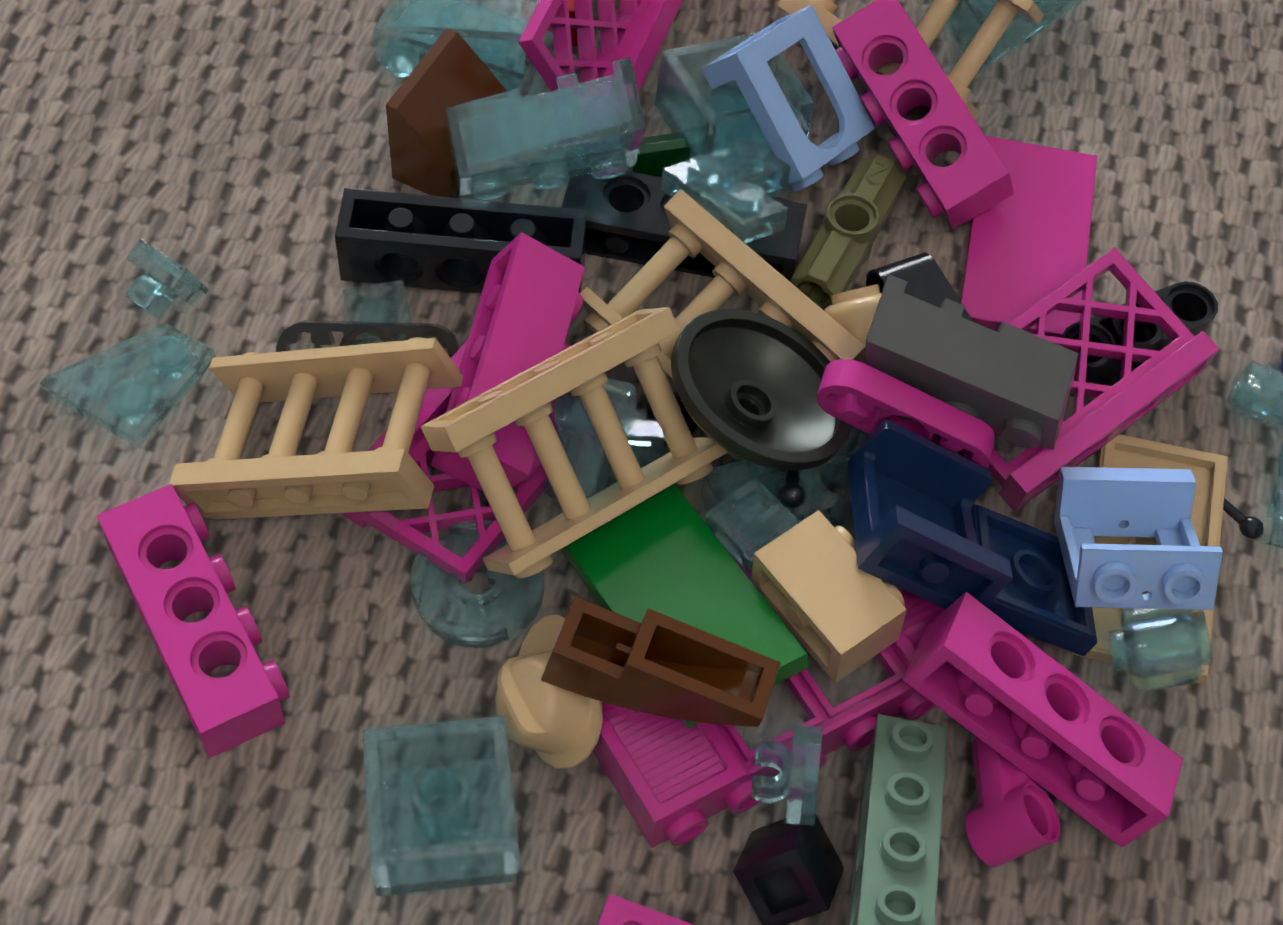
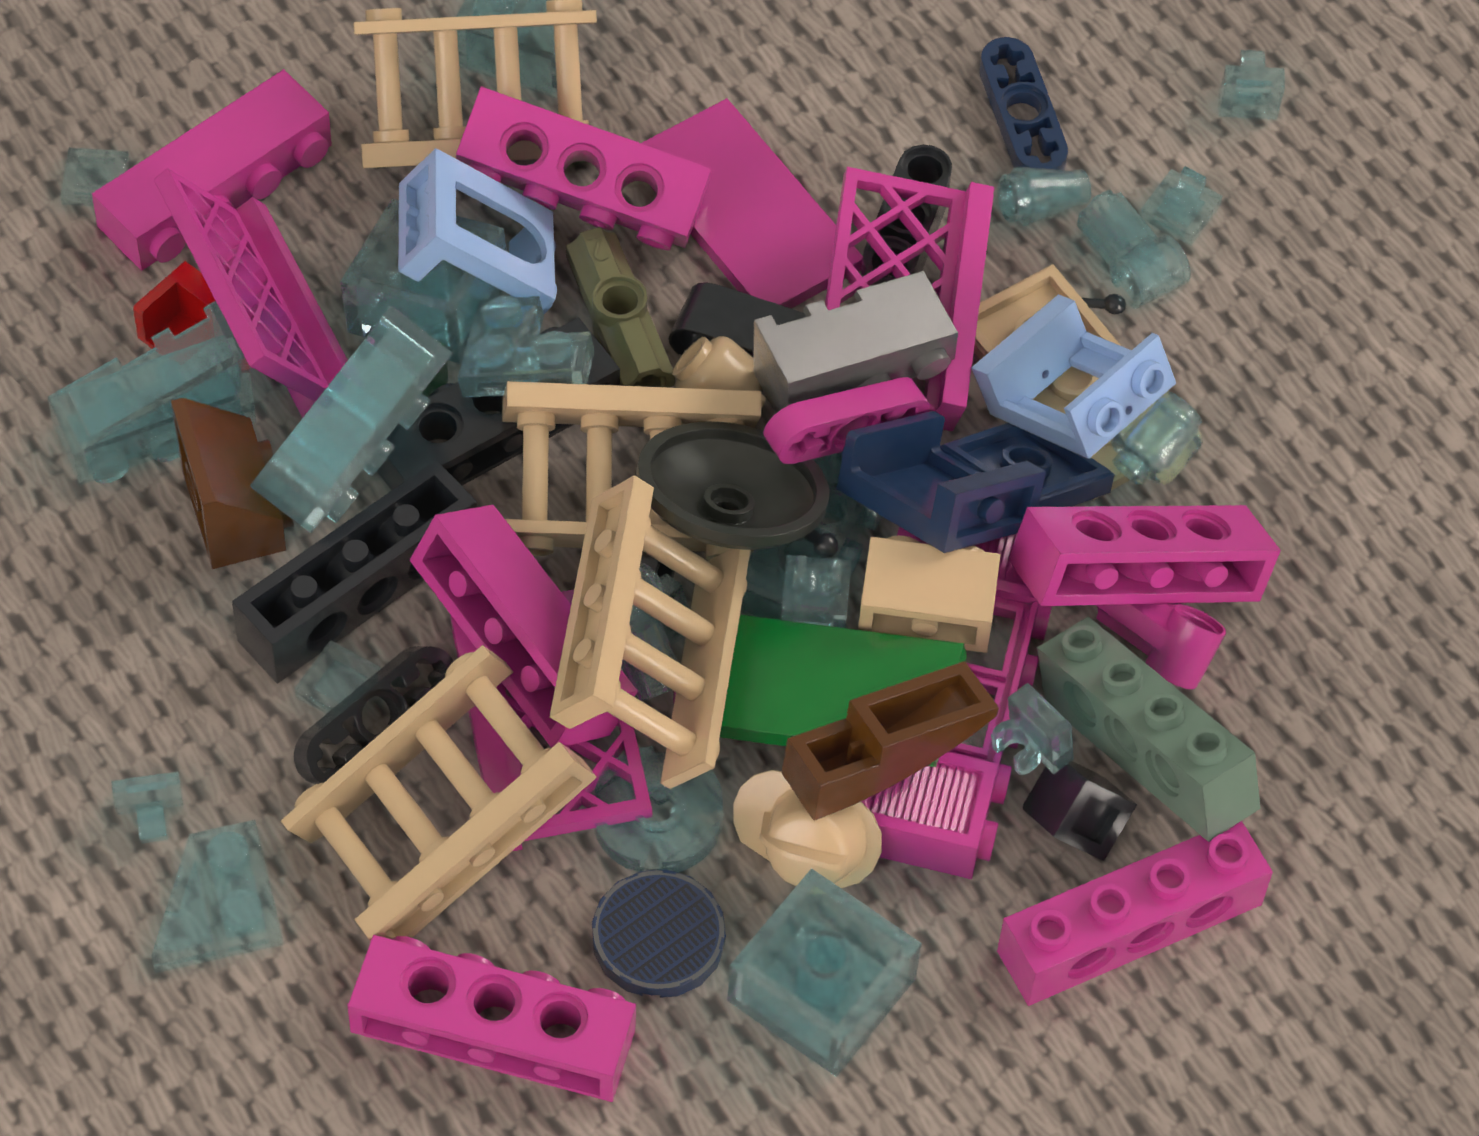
camera: 45 degrees left, 0 degrees up
(377, 669) = (658, 933): none -> tile

